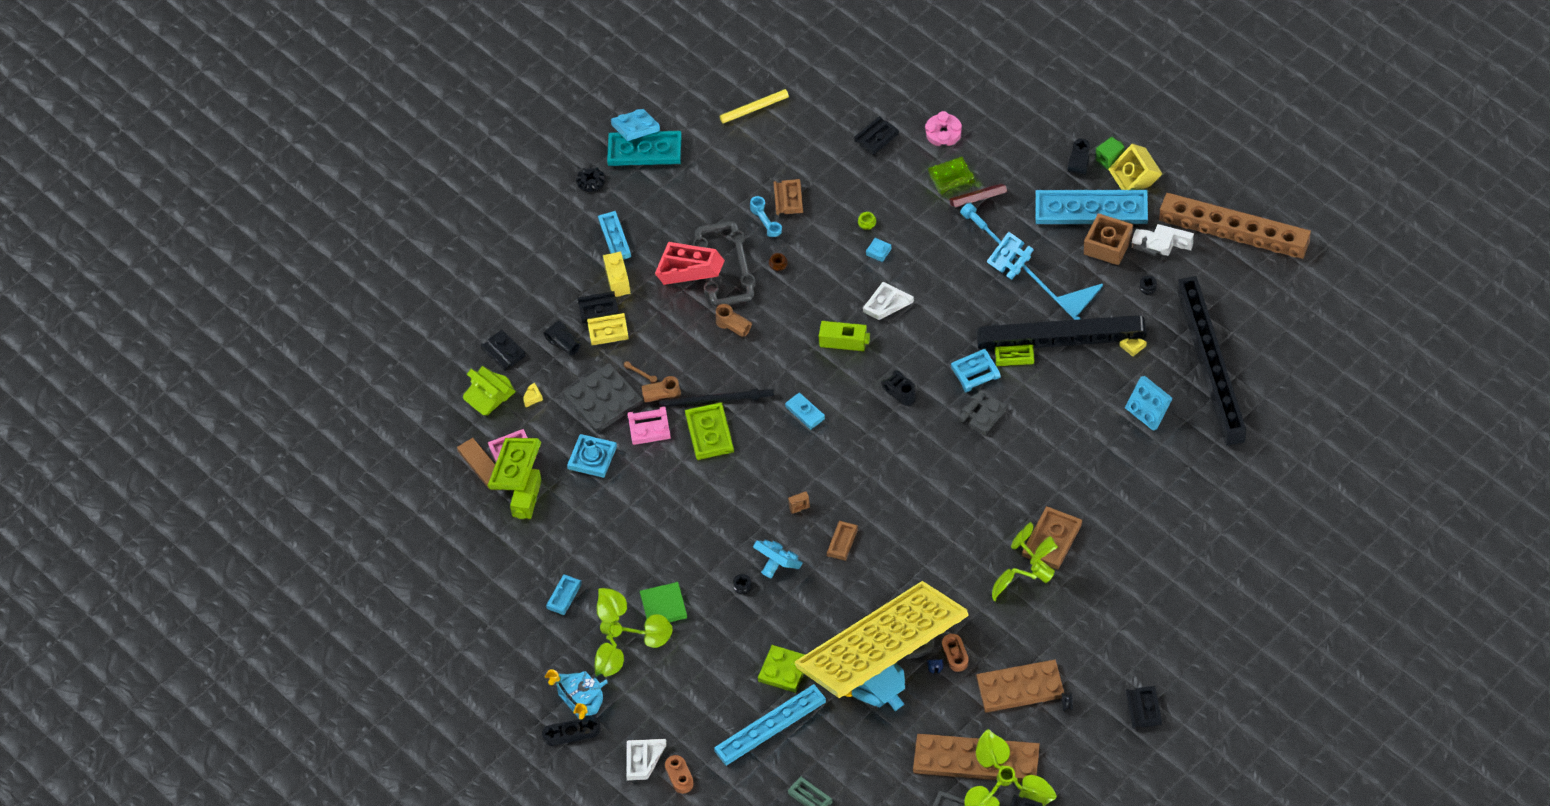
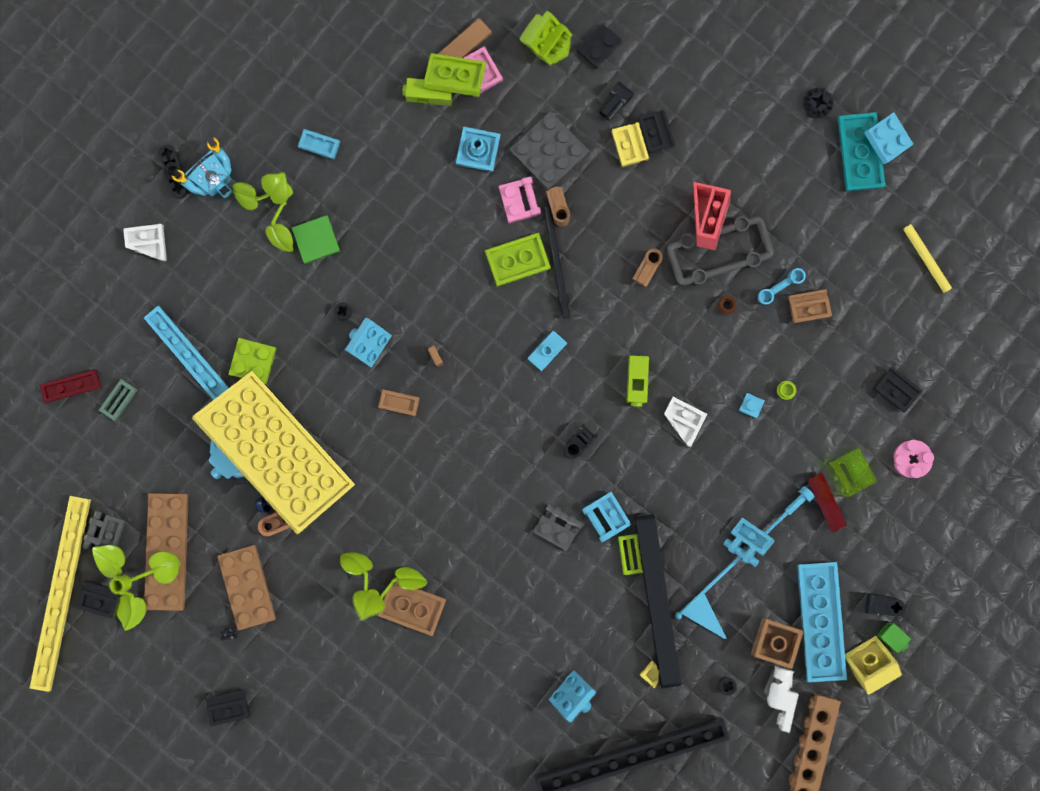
camera: 80 degrees right, 30 degrees up
(532, 395) = (547, 82): light yellow tile -> none
(614, 234) = (745, 136): medium azure plate -> none
(616, 273) = (696, 144): light yellow brick -> none
(653, 379) = (575, 197): medium nougat hinge -> none
(679, 772) = (134, 277): nougat plate -> none

